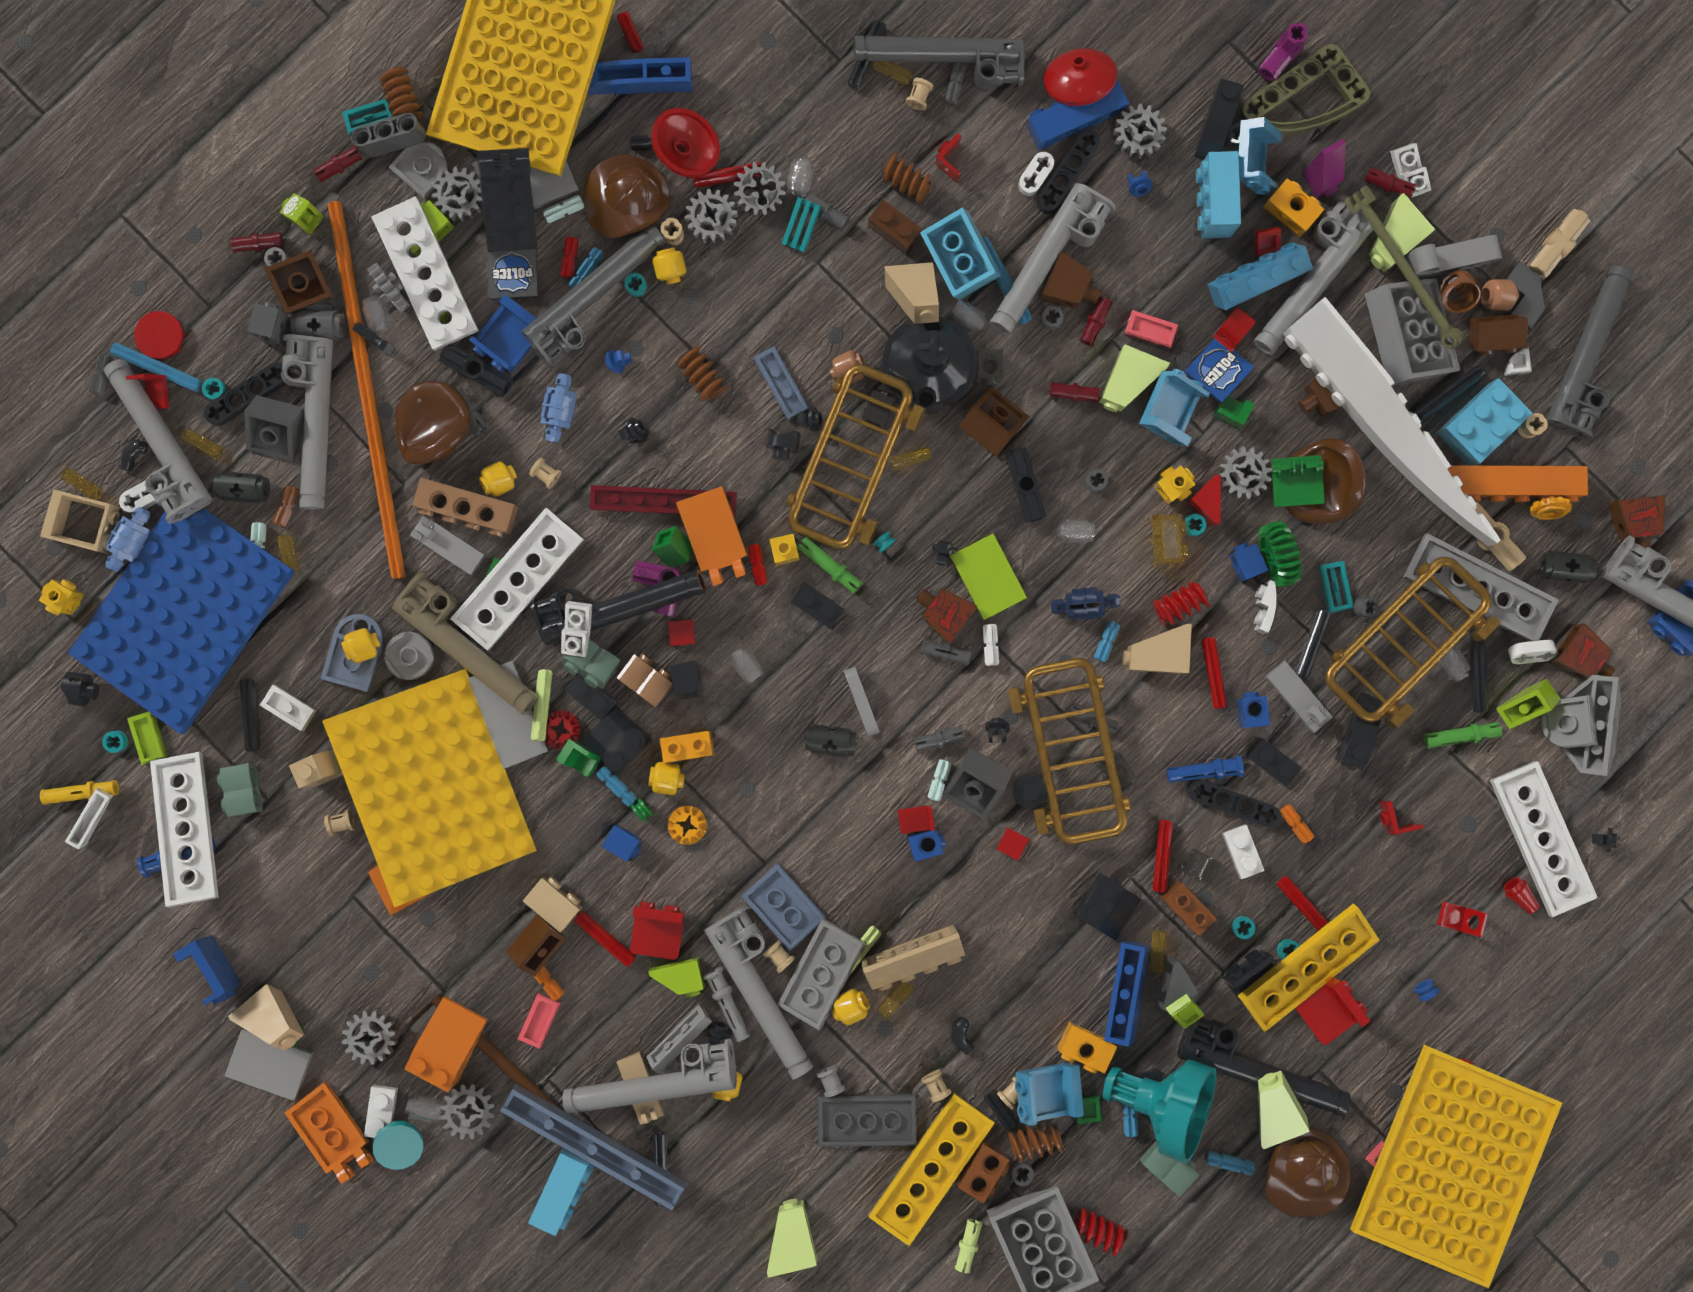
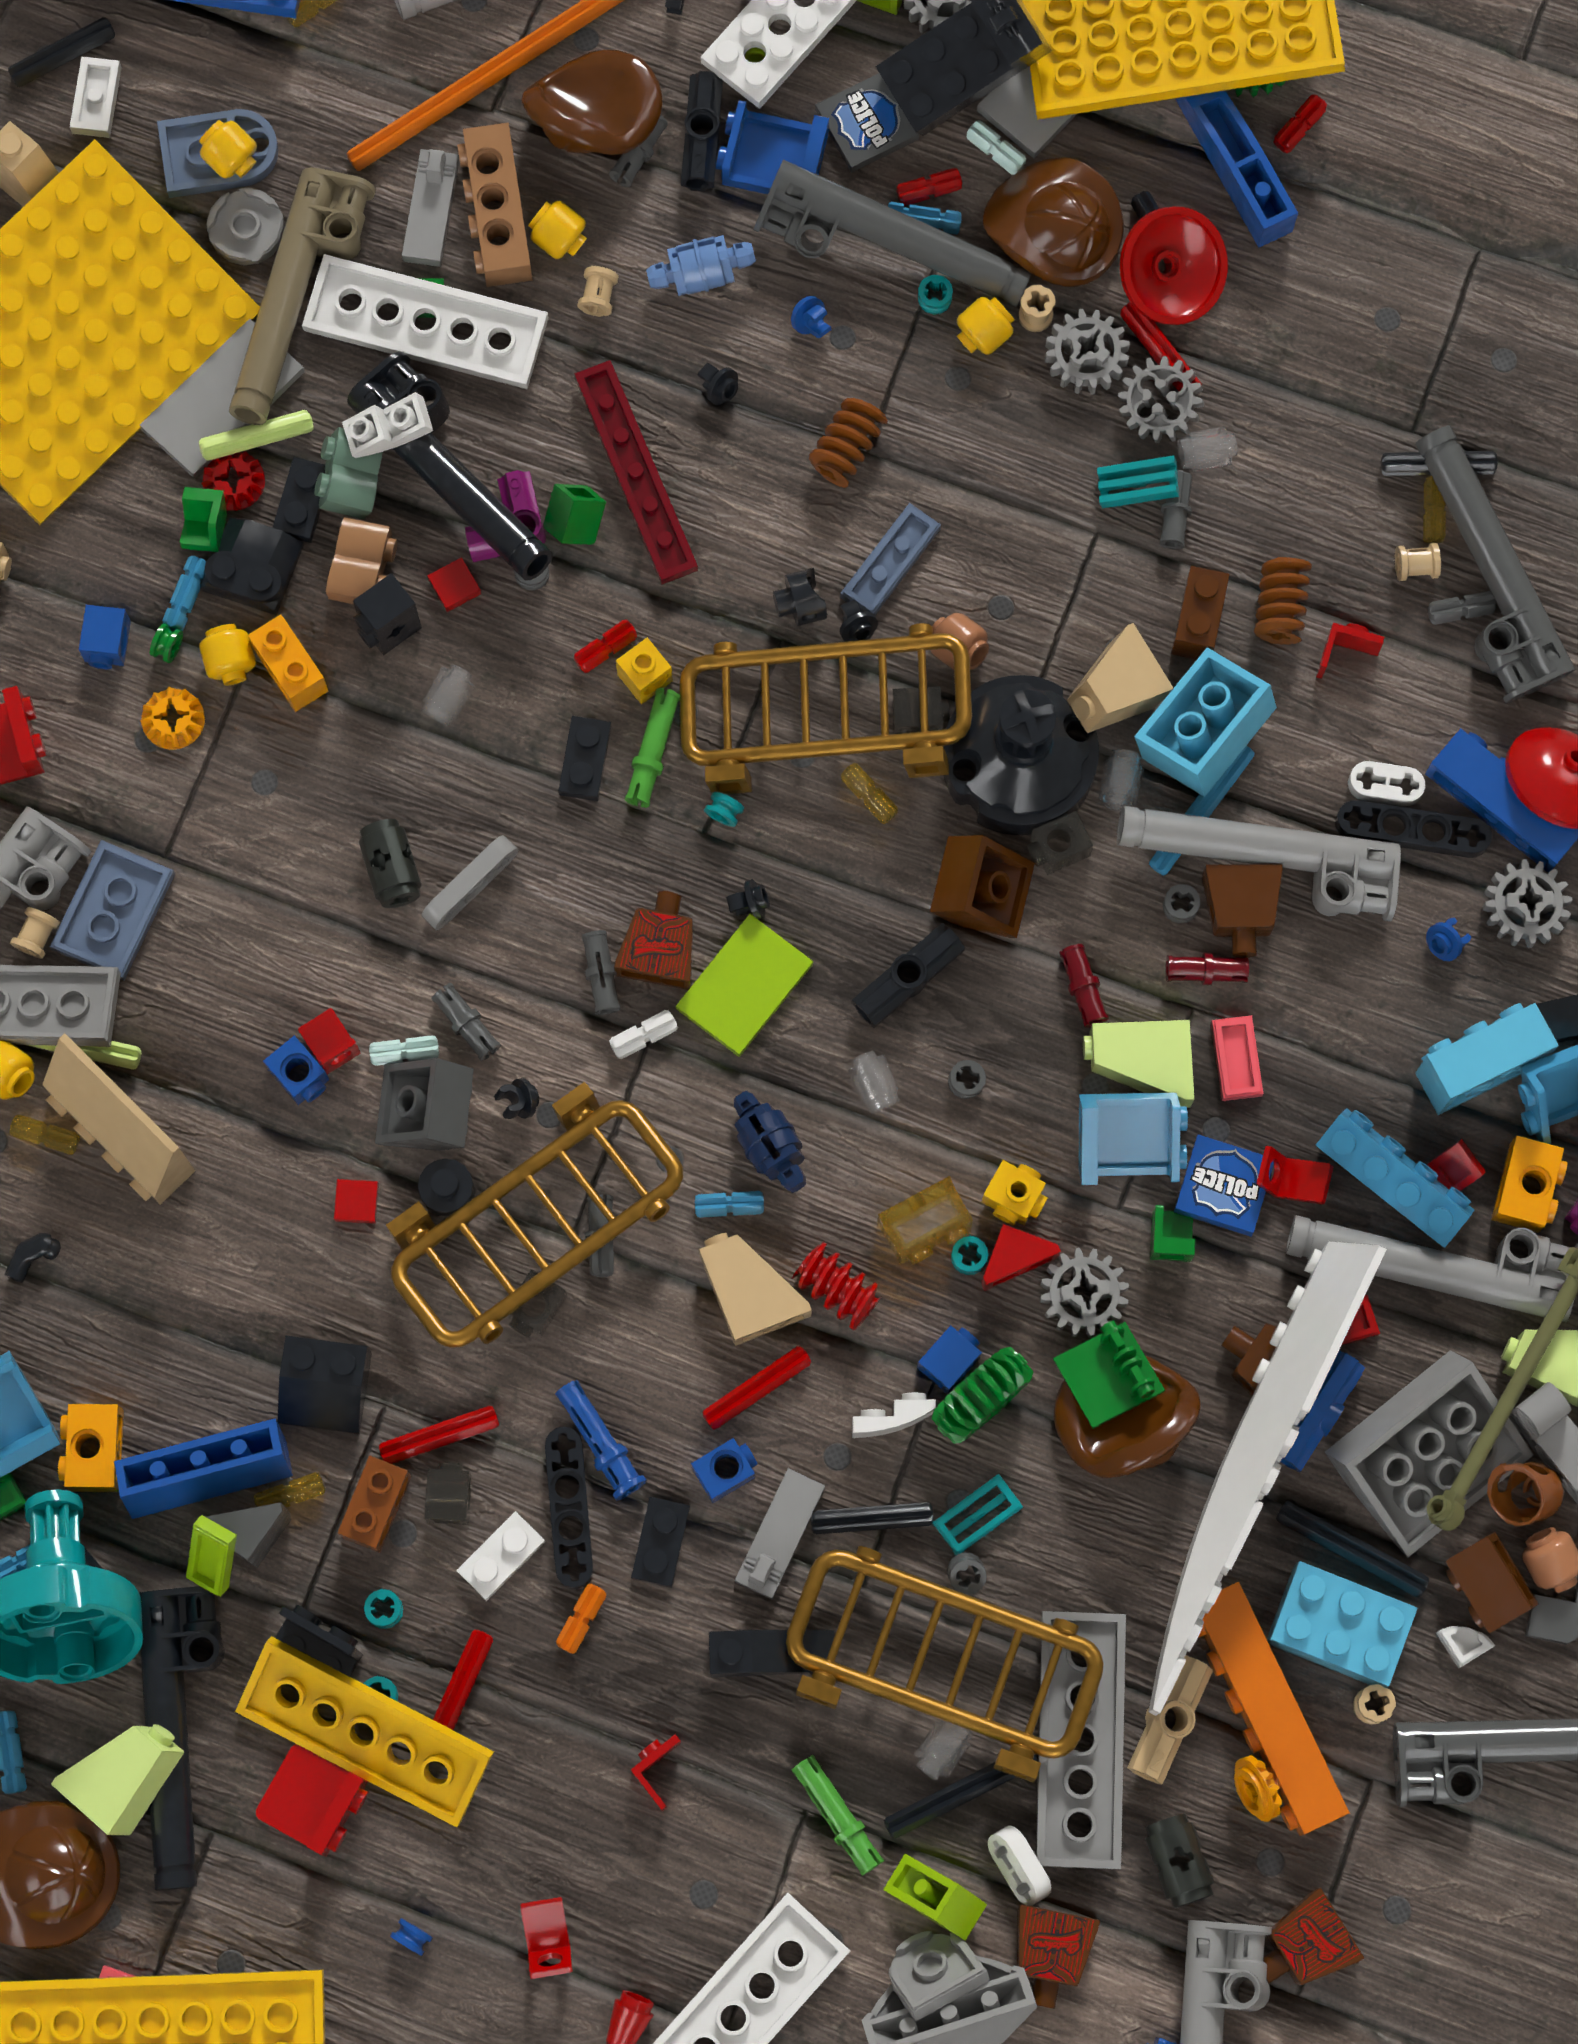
camera: 65 degrees right, 10 degrees down
(713, 533) = (619, 560): orange tile -> none

